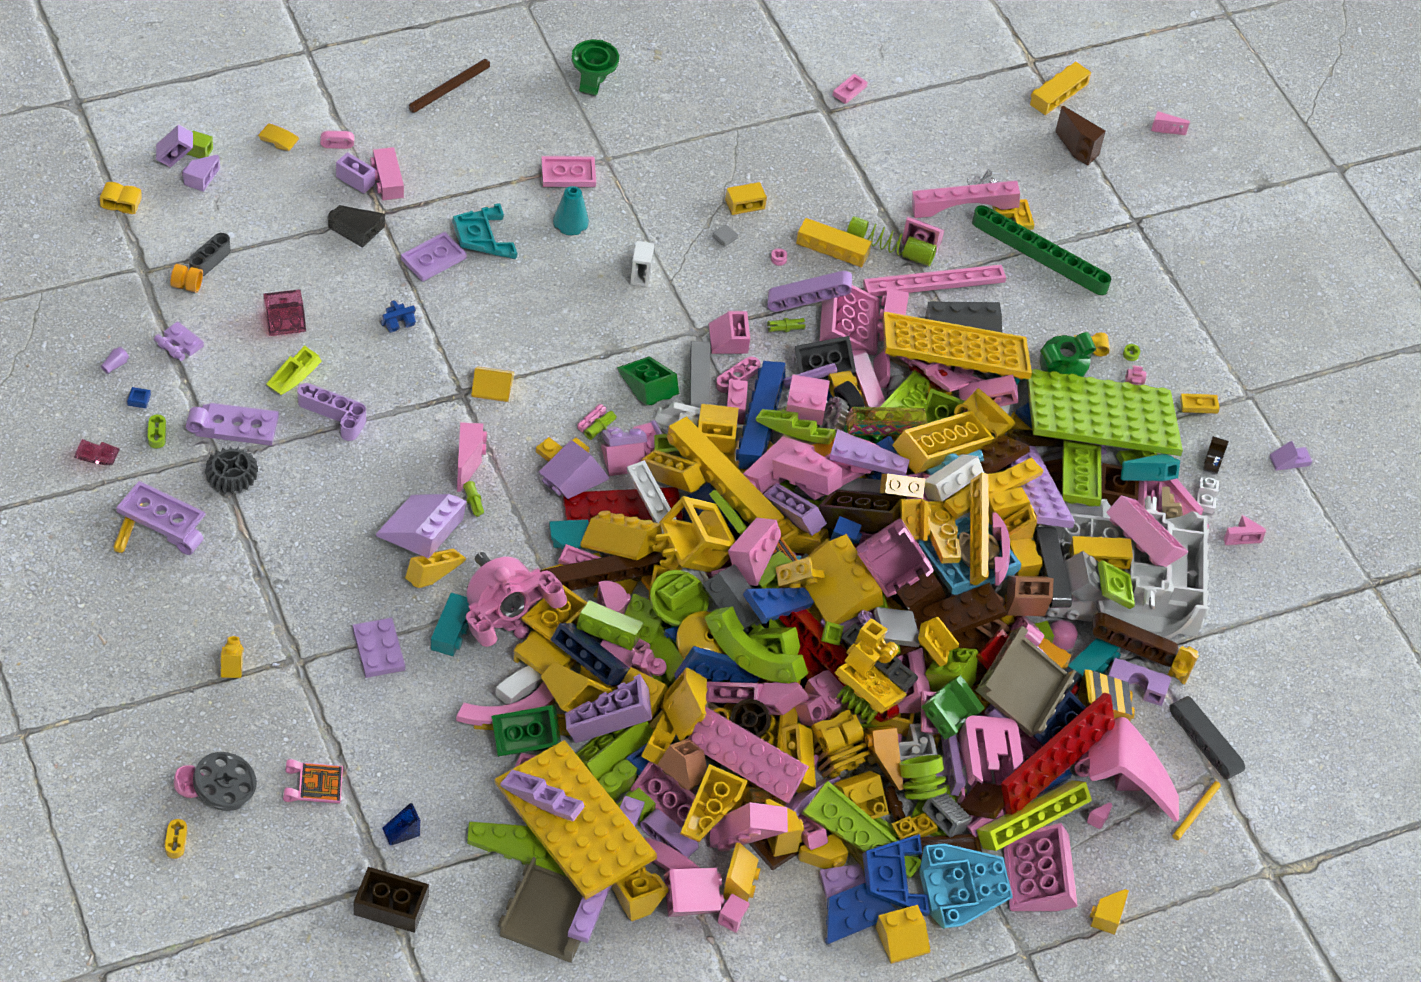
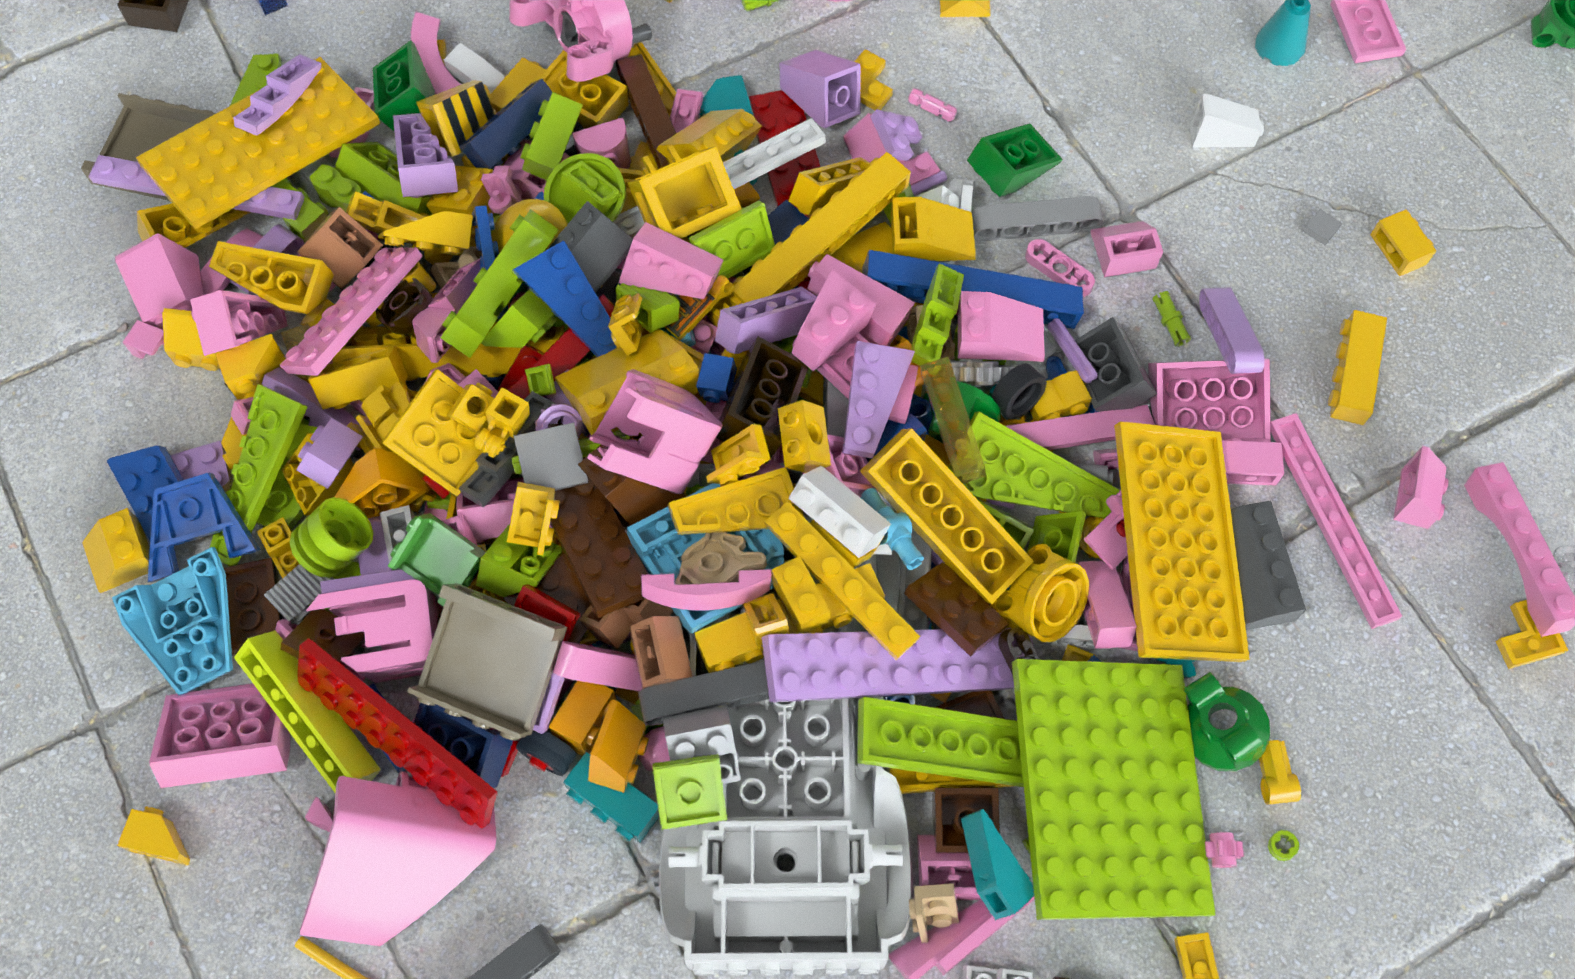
camera: 90 degrees right, 15 degrees up
(599, 425) = (921, 114): lime axle -> none
(737, 397) = (1005, 259): bright pink brick -> none
(780, 260) = (1303, 307): bright pink bush -> none
(864, 769) = (328, 453): none -> lavender brick
(914, 249) = (1385, 477): lime piece -> none
(979, 529) = (720, 553): yellow plate -> none
(1041, 250) = (1452, 690): green beam -> none
(1075, 642) = (617, 748): none -> light orange slope
(1095, 684) = (531, 815): yellow slope -> none
(1112, 550) = (761, 767): yellow brick -> none
(1134, 639) = (644, 863): reddish brown beam -> none
(1145, 531) = (810, 841): bright pink slope -> none
(1153, 683) = (577, 899): lavender arch -> none
(1183, 664) = (612, 940): yellow hips -> none

